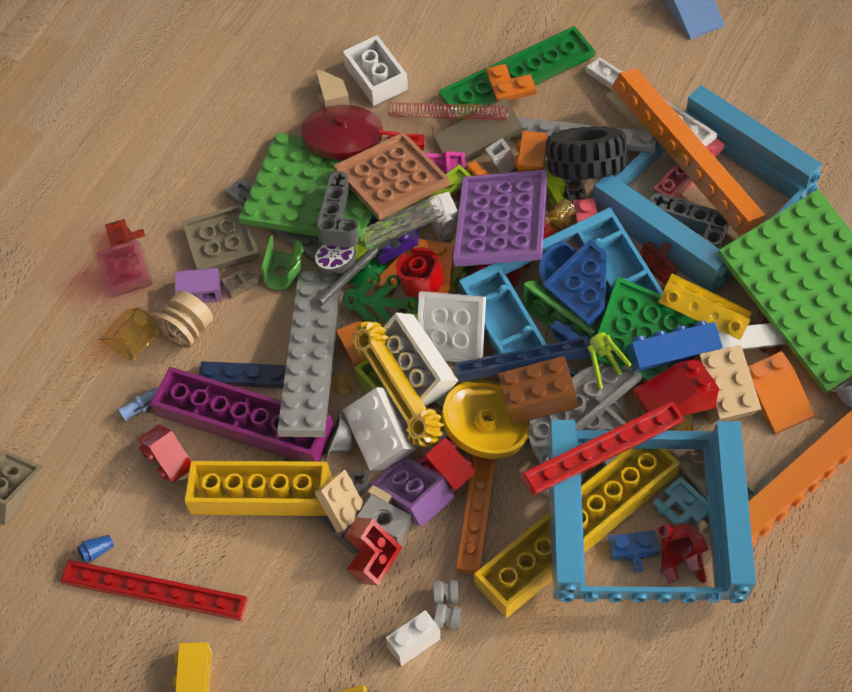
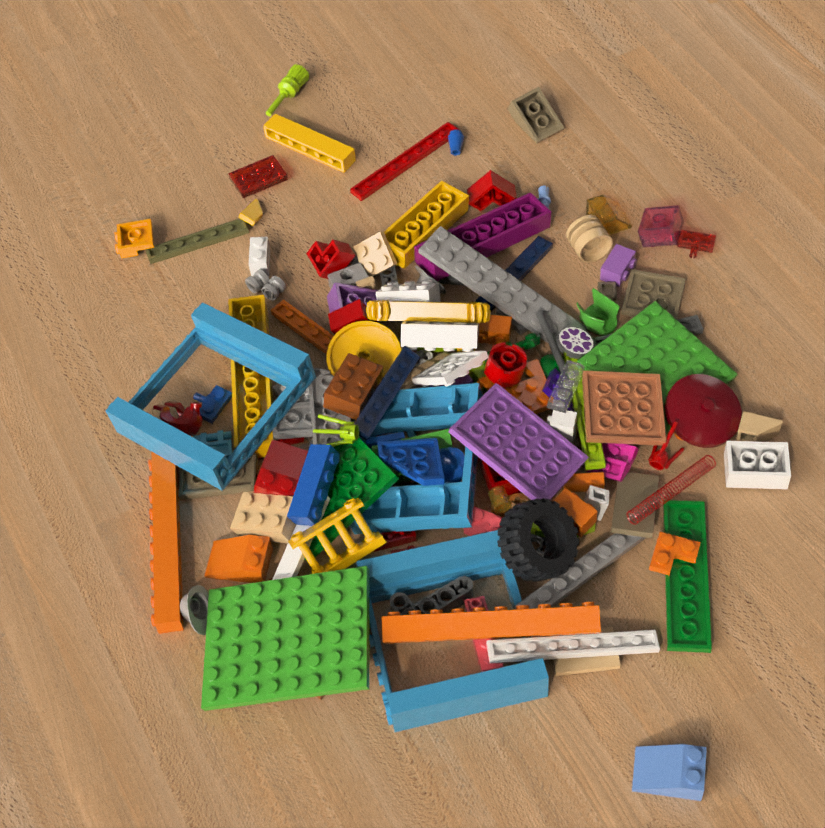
camera: 125 degrees right, 5 degrees down
(332, 227) = (630, 360): dark grey beam -> none
(601, 448) = (265, 378): red tile -> none

